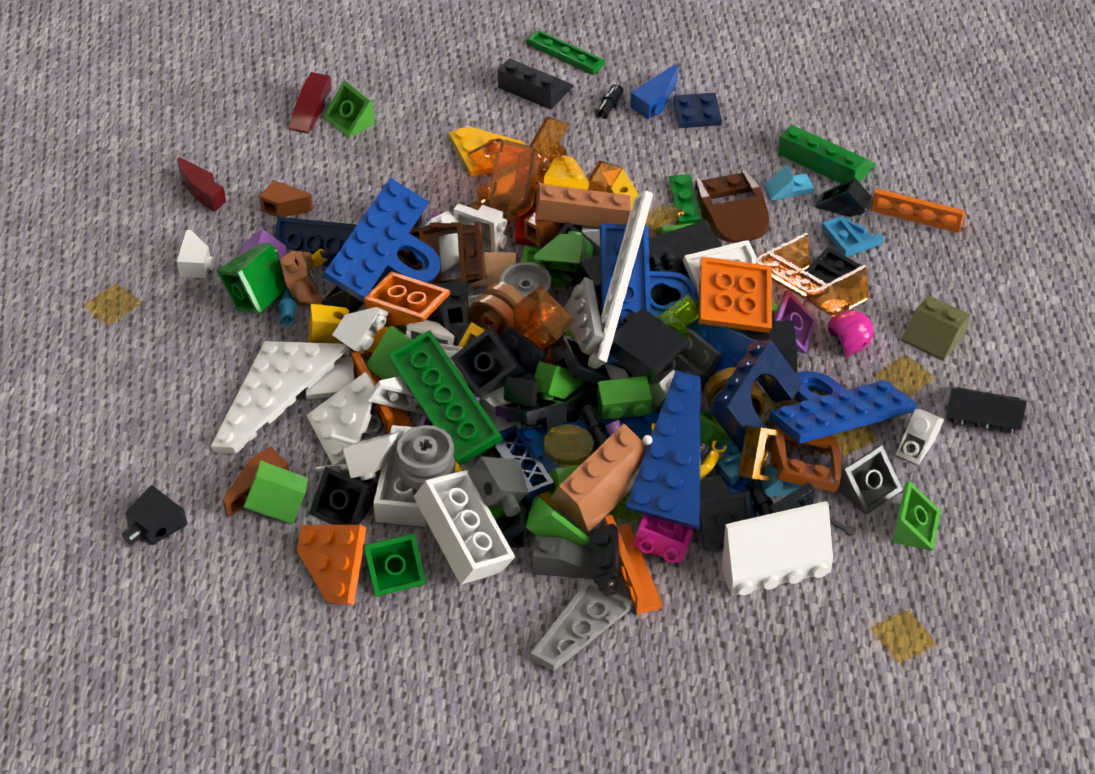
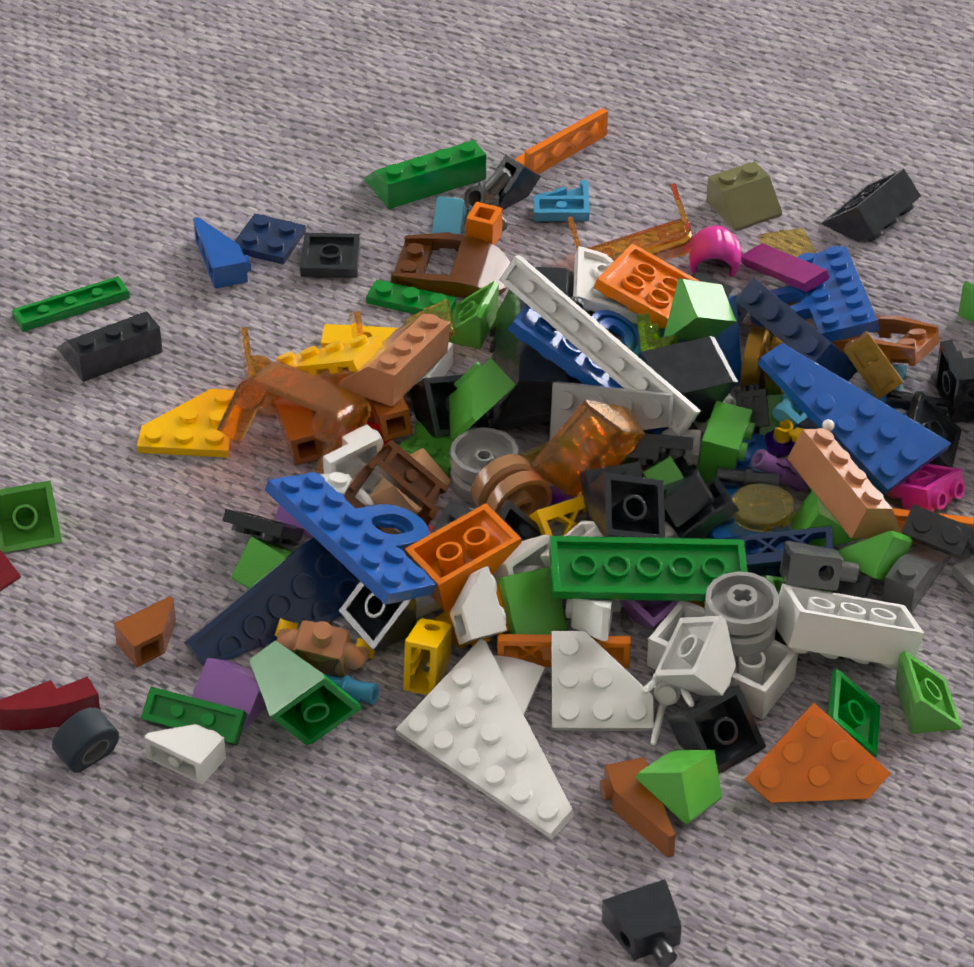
camera: 65 degrees left, 5 degrees down
(113, 304) = (207, 868): clear yellow piece -> none
(176, 208) = (85, 739): none -> black wheel
(225, 243) = (179, 710): none -> green plate
(440, 602) = (924, 697): none -> bright green slope
(609, 101) = (195, 298): black pin -> none
(699, 143) = (330, 255): none -> black plate
(714, 321) = (698, 310): none -> bright green slope
(781, 201) = (485, 223): none -> orange brick
(812, 193) = (488, 191): none -> dark grey axle
(831, 265) = (606, 227): black wing -> none
(856, 374) = (784, 267): none -> magenta tile
(869, 480) = (922, 308): dark grey slope -> none
(919, 436) = (885, 263): white slope -> none

